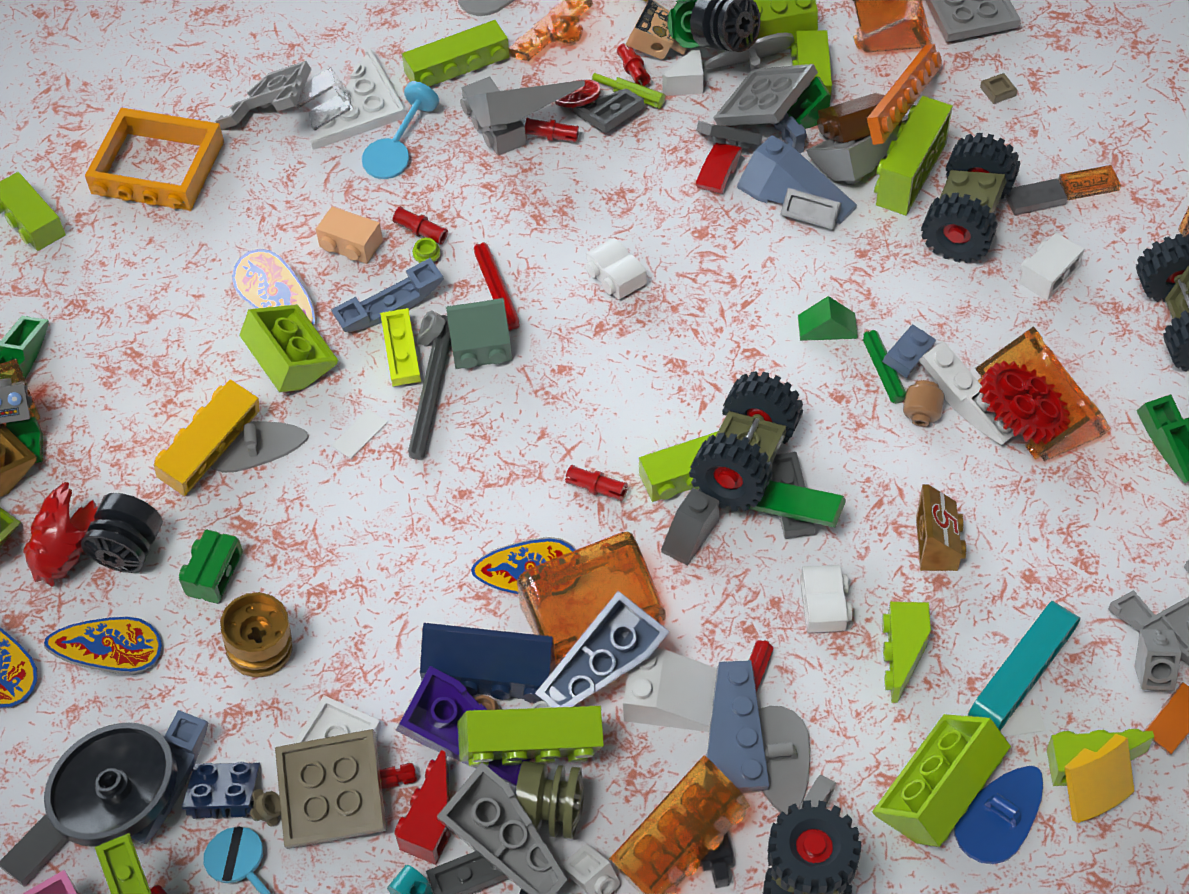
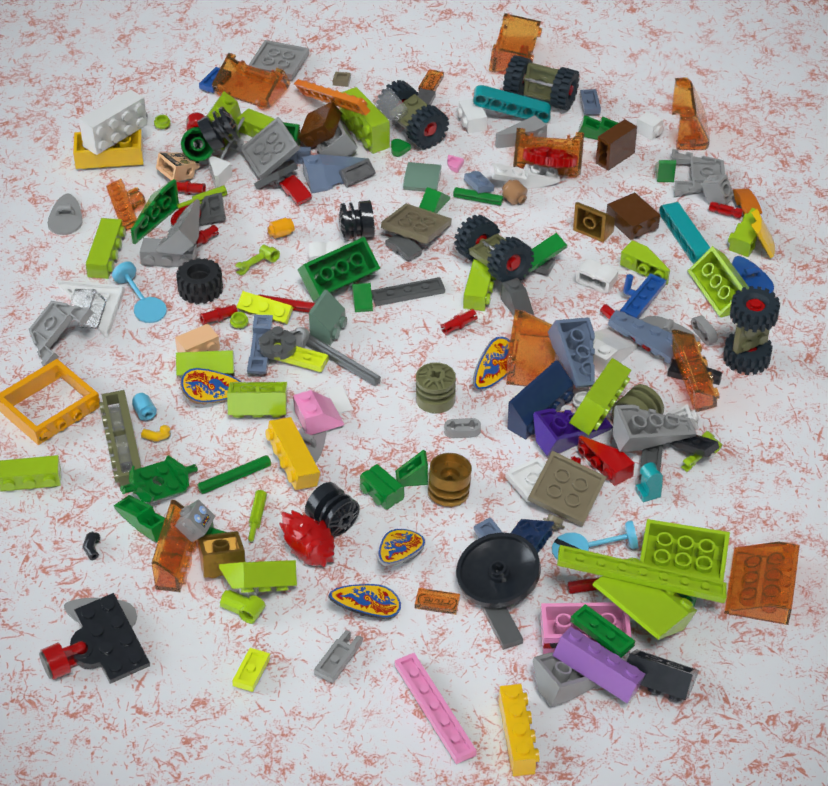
camera: 60 degrees left, 10 degrees down
(44, 740) = (437, 601): none -> clear orange tile
(58, 315) = (169, 473): none -> green plate
(92, 460) = (256, 513): none -> lime axle
(131, 260) = (121, 434): none -> olive piece
(145, 399) = (234, 474): none -> green axle
(170, 290) = (156, 436): none -> yellow arm
(203, 248) = (144, 406): none -> medium azure brick
(264, 581) = (414, 471): none -> green slope
(303, 421) = (316, 412): none -> bright pink slope
(311, 261) = (213, 360): none -> lime brick
(393, 298) = (275, 336): none -> dark grey plate
(394, 595) = (462, 428): none -> light grey beam
(429, 524) = (435, 387): none -> olive wheel
(460, 172) = (199, 280): none -> black tyre
(465, 262) = (263, 306): none -> neon yellow plate
(555, 60) = (157, 209): none -> green wedge
(567, 348) = (362, 297): none -> green slope
(572, 210) = (265, 252): none -> lime brick
(580, 294) = (339, 268): none -> green brick
(620, 394) = (408, 291): none -> dark grey tile
(630, 193) = (280, 227): none -> light orange brick
(697, 259) = (357, 220): none -> black wheel
(703, 340) = (404, 246): none -> dark grey slope
(754, 327) = (416, 223): none -> dark tan plate
(819, 681) = (643, 296): none -> blue plate
(868, 281) = (421, 175): none -> sand green slope
(909, 224) = (399, 147): none -> green tile
(935, 303) = (455, 163): none -> bright pink tile
(938, 162) = (390, 106): none -> clear piece
(1000, 577) = (633, 216): none -> reddish brown brick
(1075, 347) = (507, 137): none -> light grey slope
(1110, 296) = (511, 103): none -> teal beam
(1133, 697) = (726, 210): none -> red axle
(1139, 469) = (616, 144): none -> reddish brown brick
(1151, 565) = (665, 170): none -> green slope

